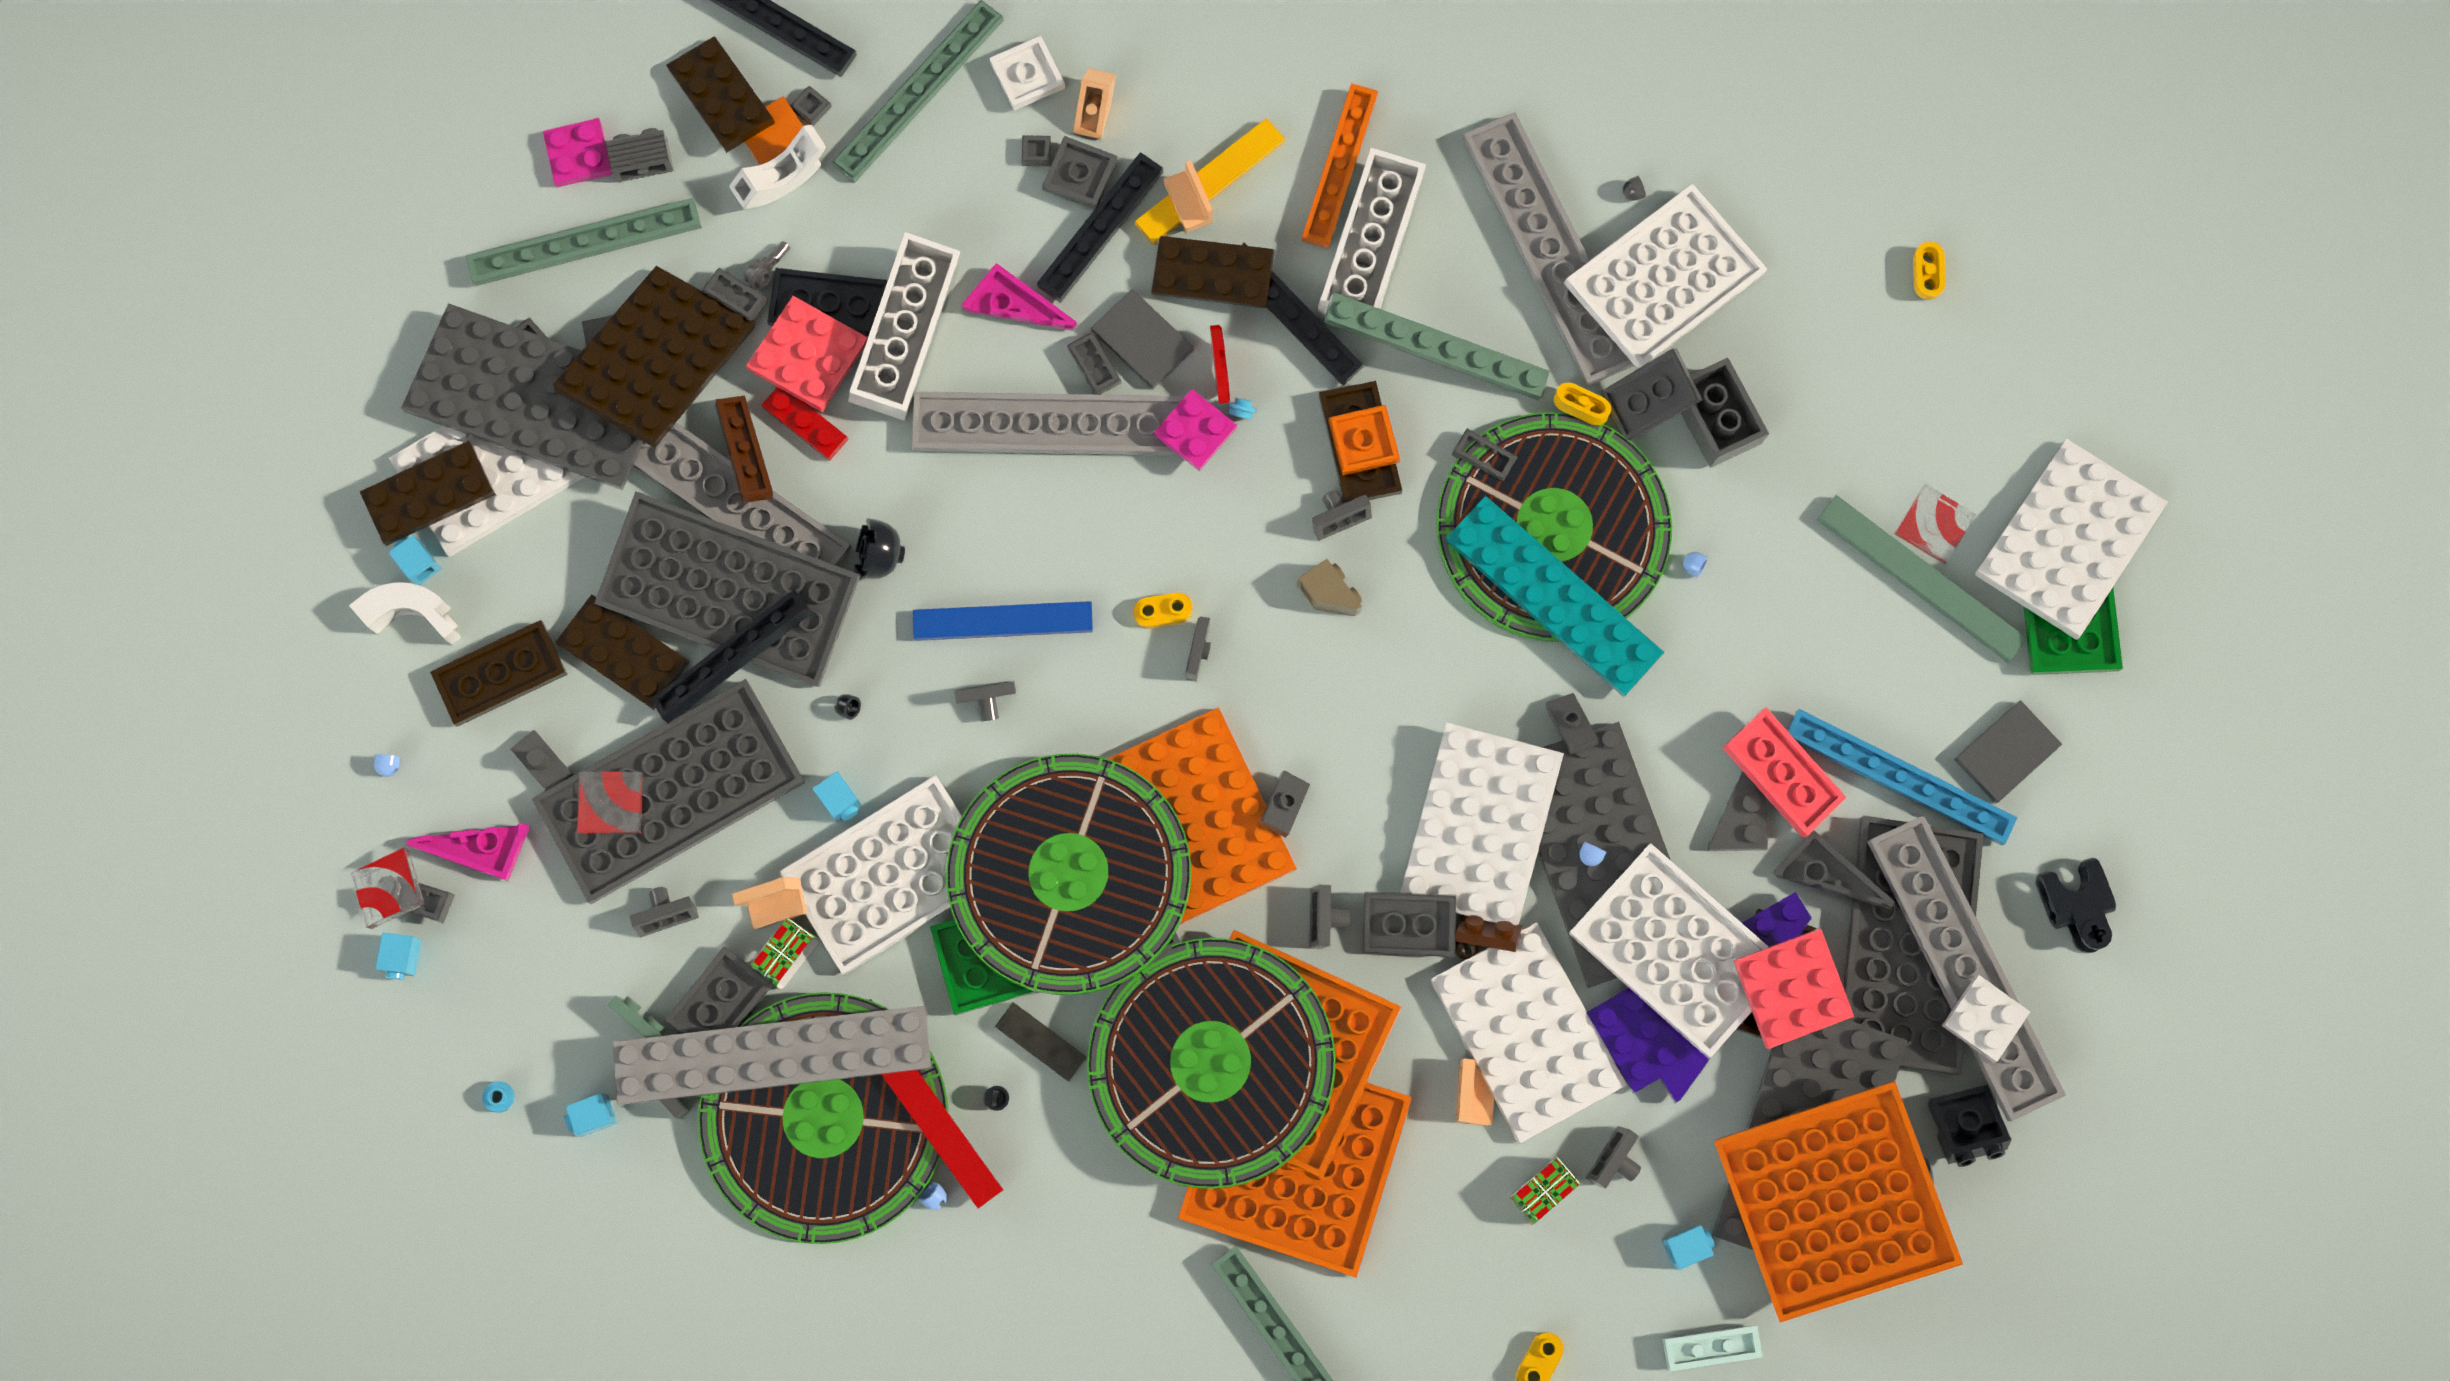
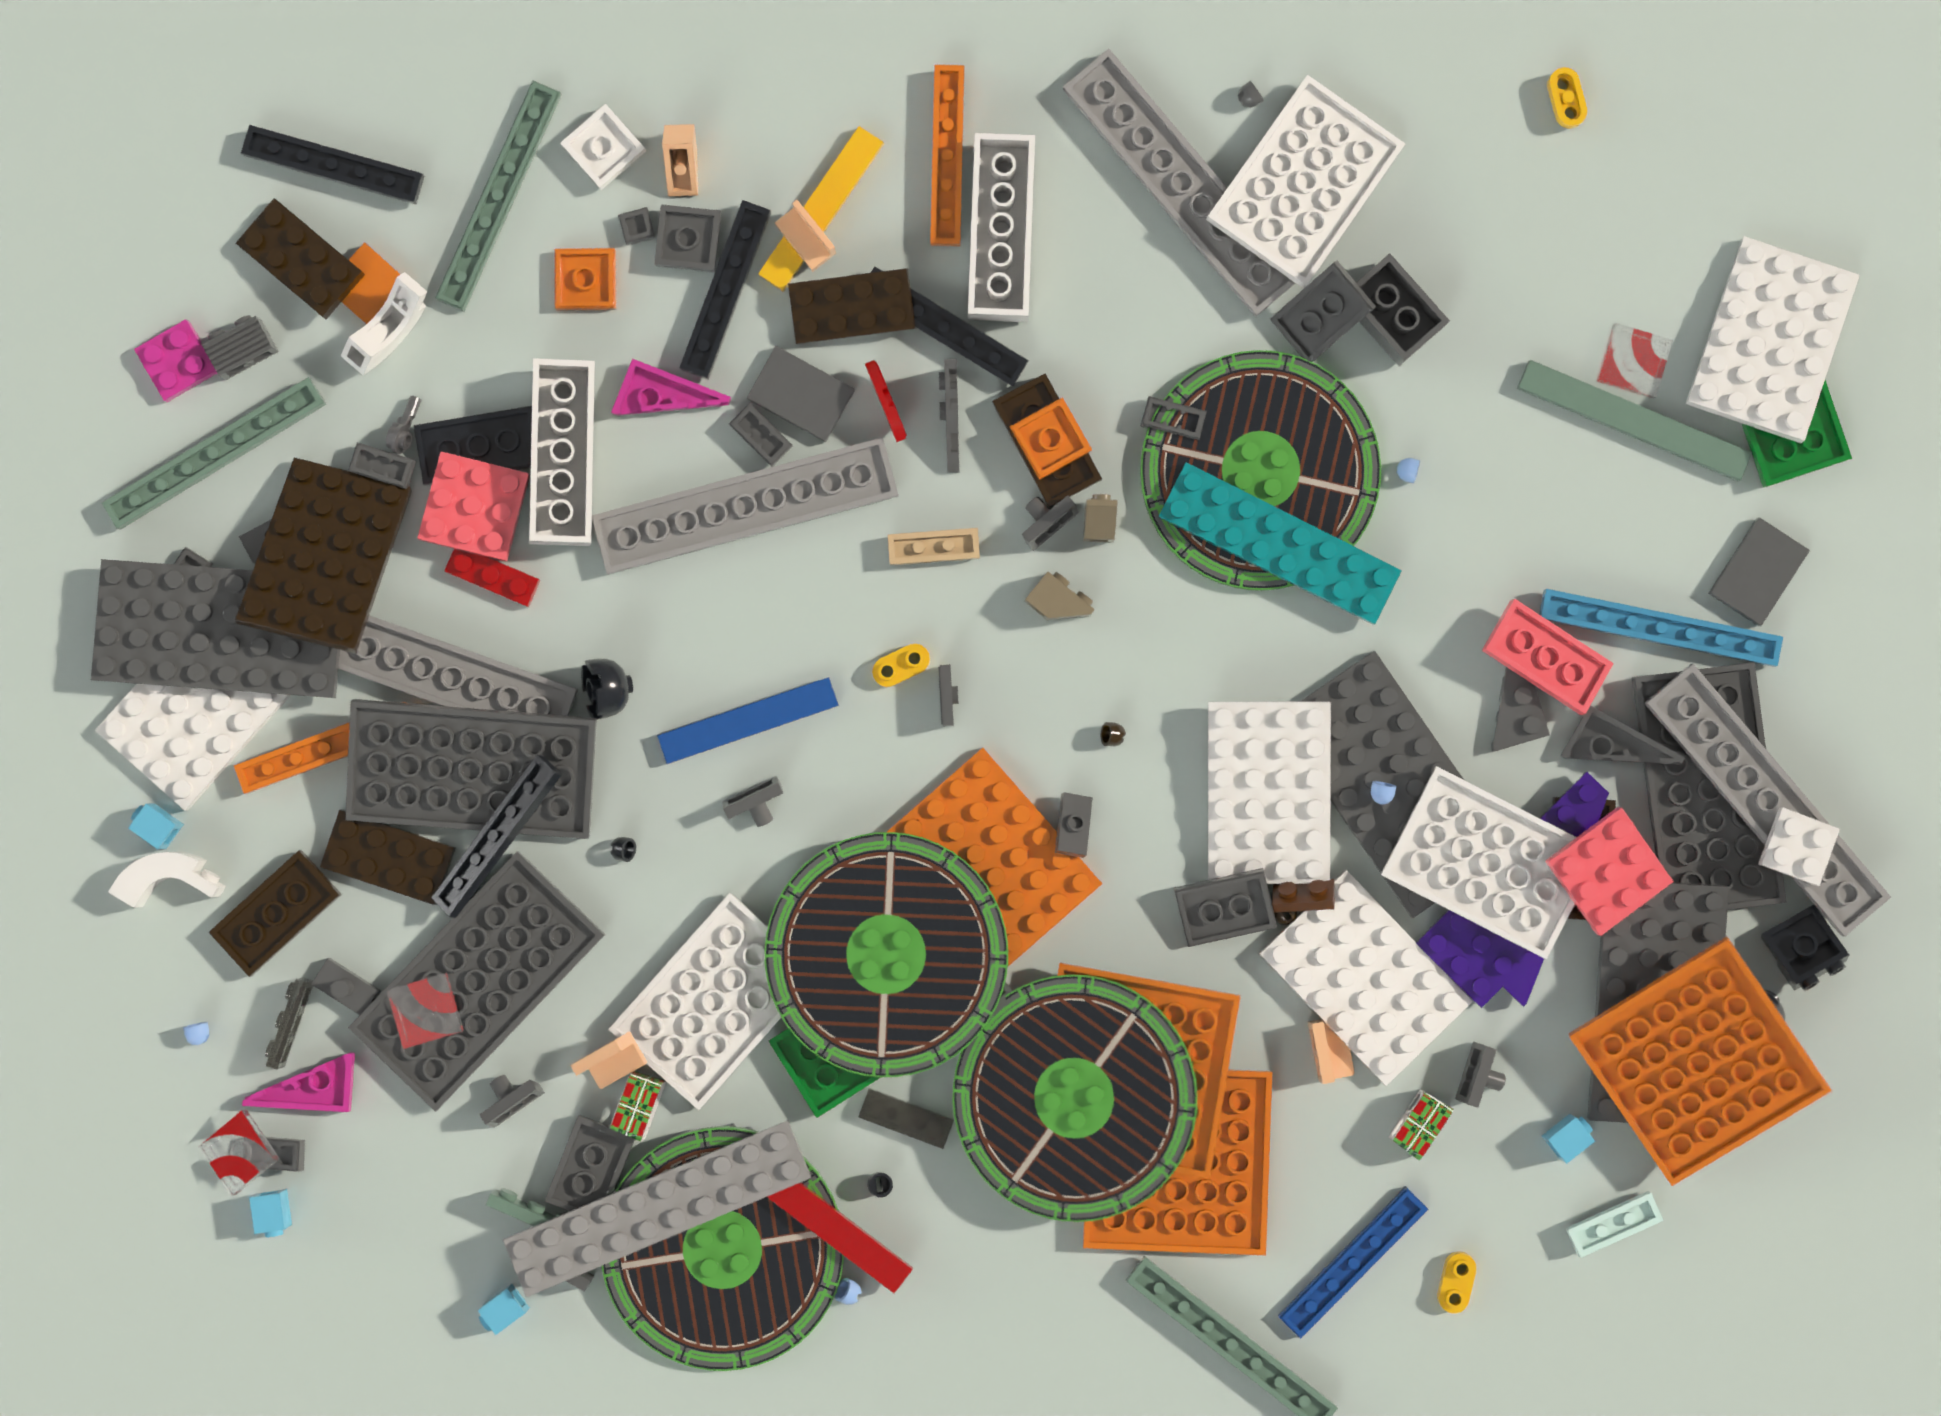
camera: 15 degrees left, 10 degrees up
(427, 493) = (146, 757): dark brown plate -> none
(476, 779) = (288, 1023): none -> clear smoke plate
(507, 1099) = (418, 1312): medium azure plate -> none
(563, 536) = (294, 759): none -> orange plate
(744, 449) = (442, 623): reddish brown plate -> none
(810, 106) = (395, 243): dark grey tile -> none
(837, 797) = (642, 942): medium azure brick -> none
(974, 183) = (585, 279): none -> orange tile
(1195, 430) = (881, 476): dark pink plate -> none
(1225, 509) = (933, 546): none -> tan plate
(1241, 408) = (920, 439): medium azure plate -> none
(1276, 390) = (949, 412): none -> dark grey wing
(1324, 917) = (1142, 923): dark grey tile -> none
(1345, 730) = (1112, 734): none -> dark brown hinge
(1389, 524) = (1100, 519): none -> dark tan slope
(1436, 346) = (1096, 322): sand green plate -> none
(1441, 1312) = (1353, 1262): none -> blue tile
(1571, 723) = (1329, 666): dark grey plate -> none
(1582, 403) = (1256, 336): yellow plate -> none
(2082, 909) = (1866, 708): black piece -> none

